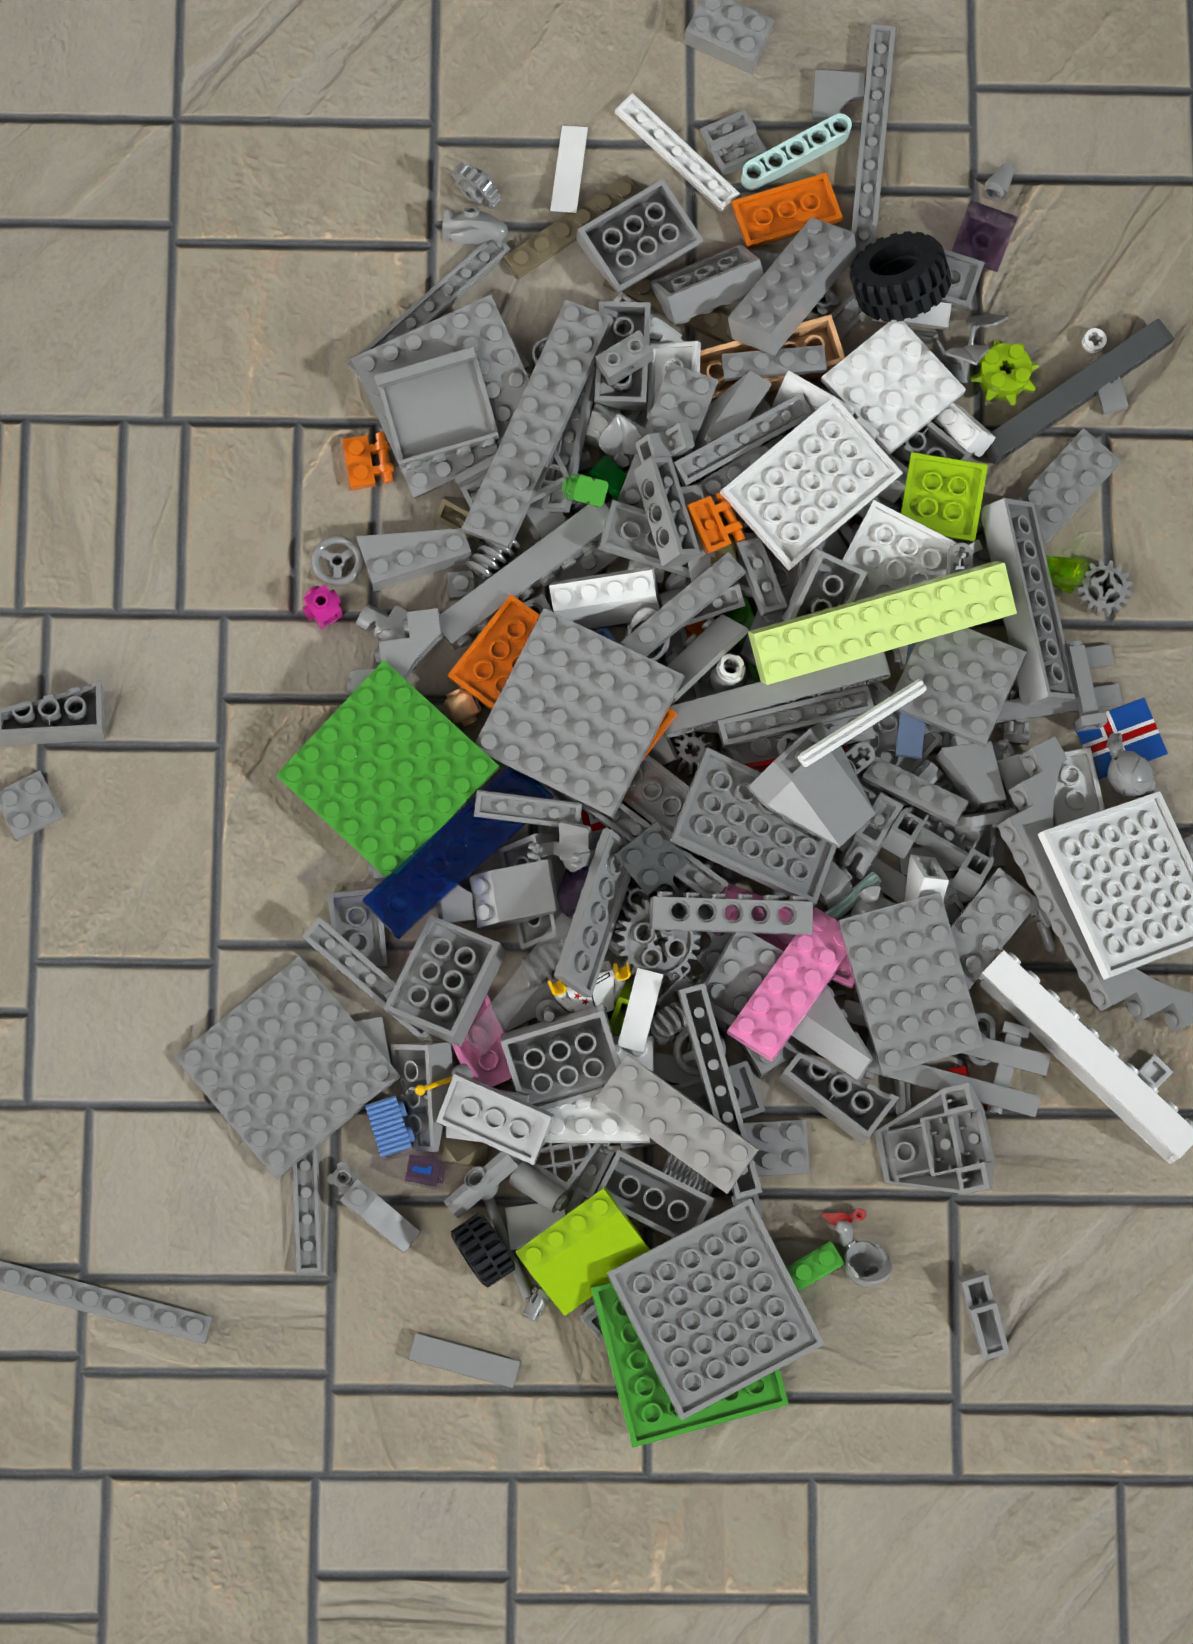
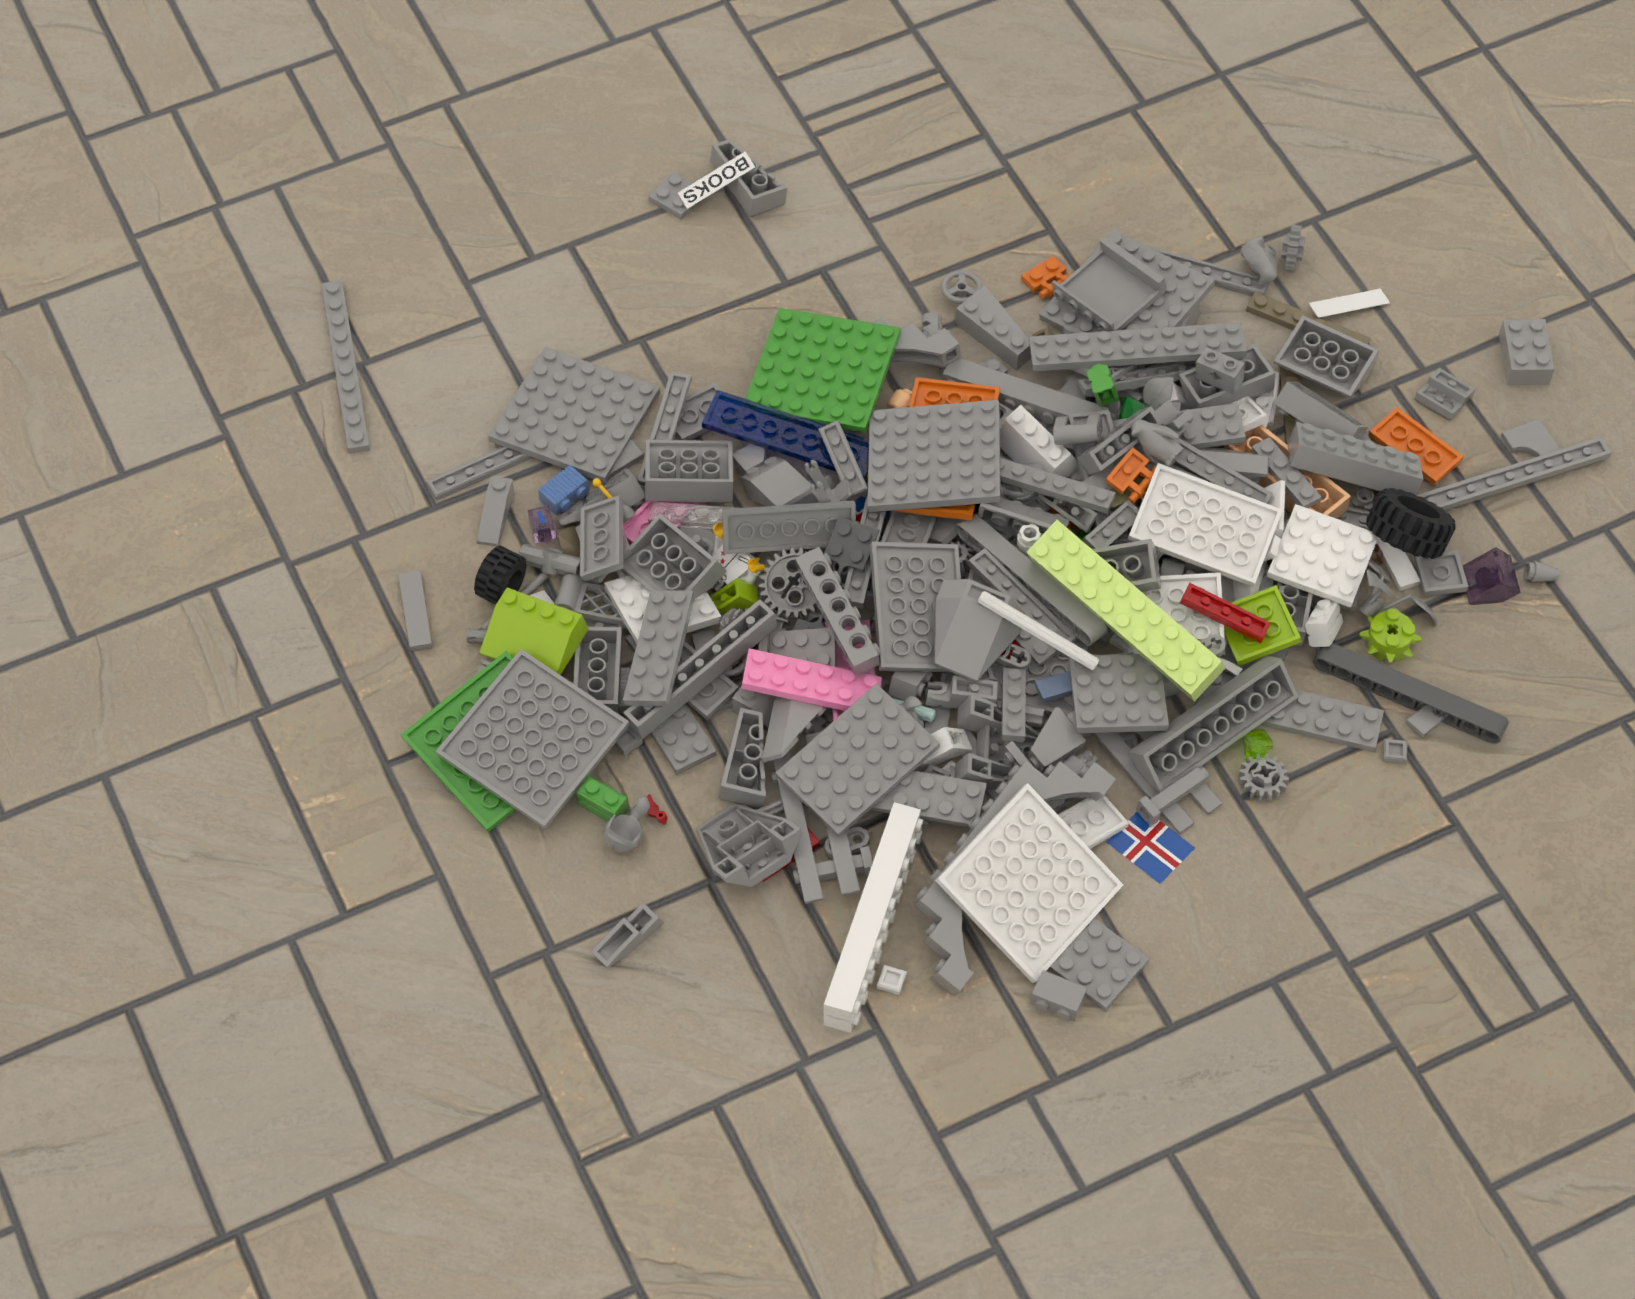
camera: 70 degrees right, 20 degrees down
(47, 754) = (716, 180): none -> white sticker
(322, 606) = (922, 292): dark pink brick -> none
(335, 1178) = (517, 477): light grey plate -> none
(489, 557) = (1026, 373): light grey piece -> none
(639, 551) = (1077, 433): none -> light grey connector
(640, 1010) = (734, 593): white tile -> none
(677, 152) = (1411, 362): white tile -> none
(699, 475) = (1157, 442): none -> light grey animal
(802, 142) = (1465, 432): light aqua beam -> none
(925, 523) = (1225, 612): none -> red tile
(1017, 731) = (1111, 765): light grey tile -> none
(1099, 335) = (1462, 684): white bush -> none
(1128, 771) = (1124, 852): light grey piece -> none
(1131, 444) = (1395, 751): none -> light grey tile

